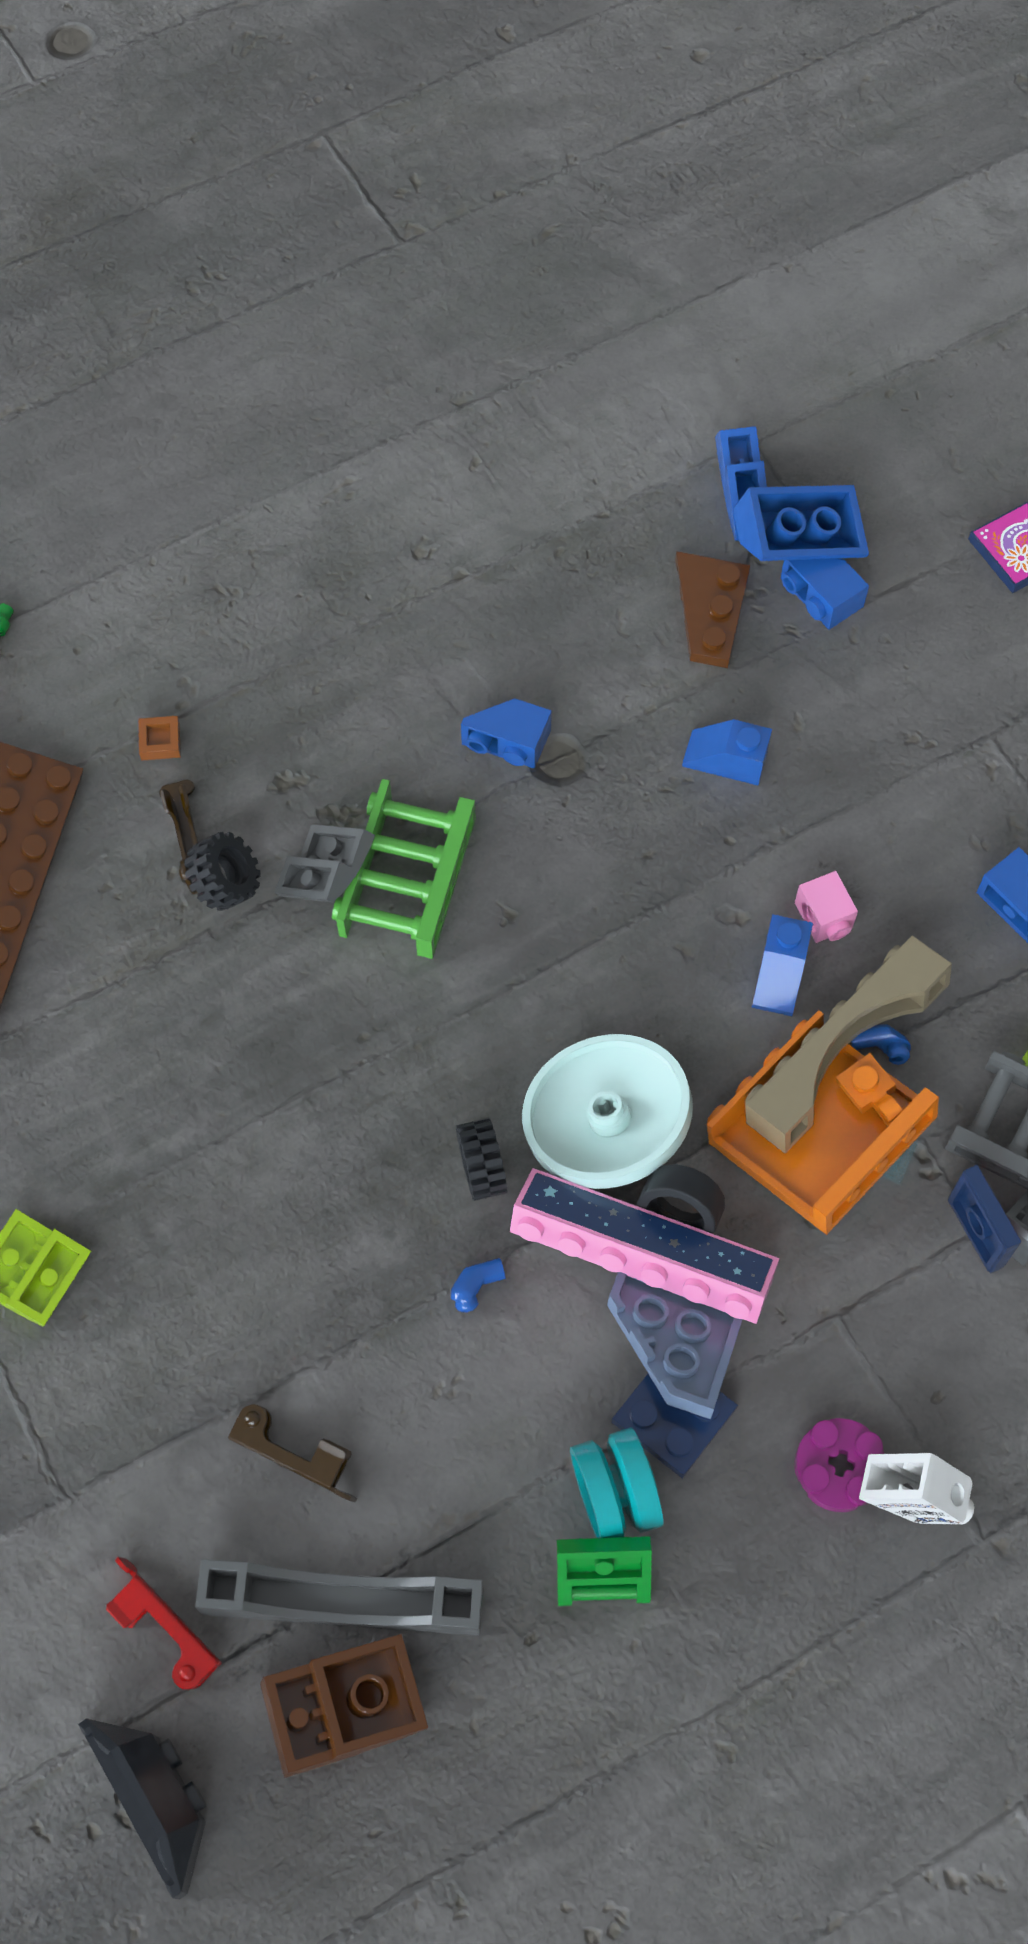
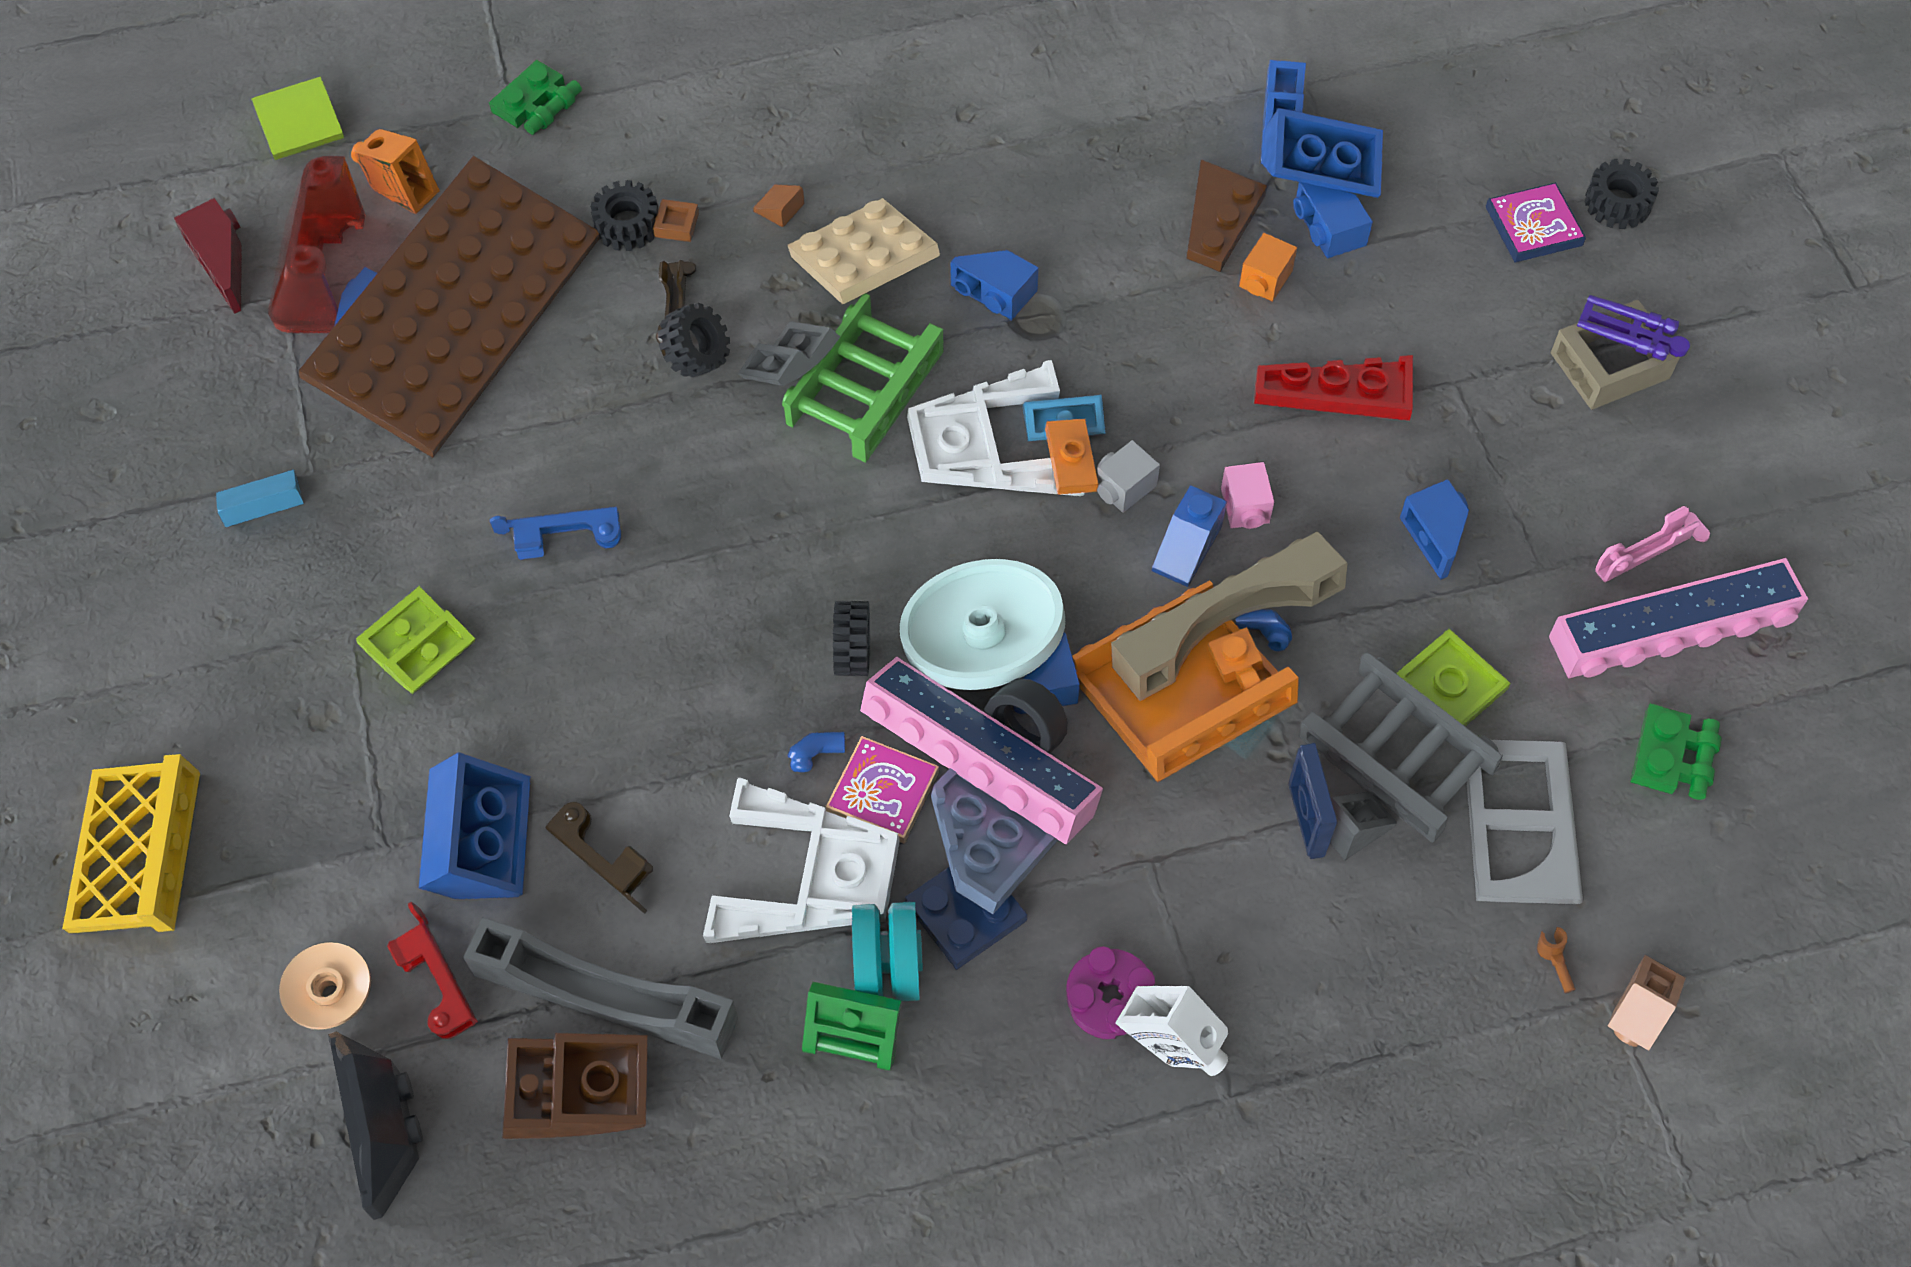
camera: 15 degrees right, 5 degrees down
(31, 1666) = (314, 971): none -> light nougat dish
(101, 725) = (619, 200): none -> black tyre
(111, 1119) = (529, 531): none -> blue piece
(156, 1460) = (474, 830): none -> blue slope
(261, 693) = (780, 203): none -> dark orange slope
(366, 730) = (863, 250): none -> tan plate
(523, 919) = (957, 440): none -> white wing
(545, 1409) = (844, 867): none -> white wing
(555, 1308) = (883, 787): none -> tile
(619, 864) = (1086, 407): none -> dark azure slope
(641, 907) = (1071, 456): none -> orange plate
(699, 1147) = (1057, 675): none -> blue slope
(701, 914) = (1126, 476): none -> light grey brick
(729, 750) = (1199, 340): blue slope -> none
(776, 655) = (1268, 267): none -> orange brick
(900, 766) = (1355, 389): none -> red wing

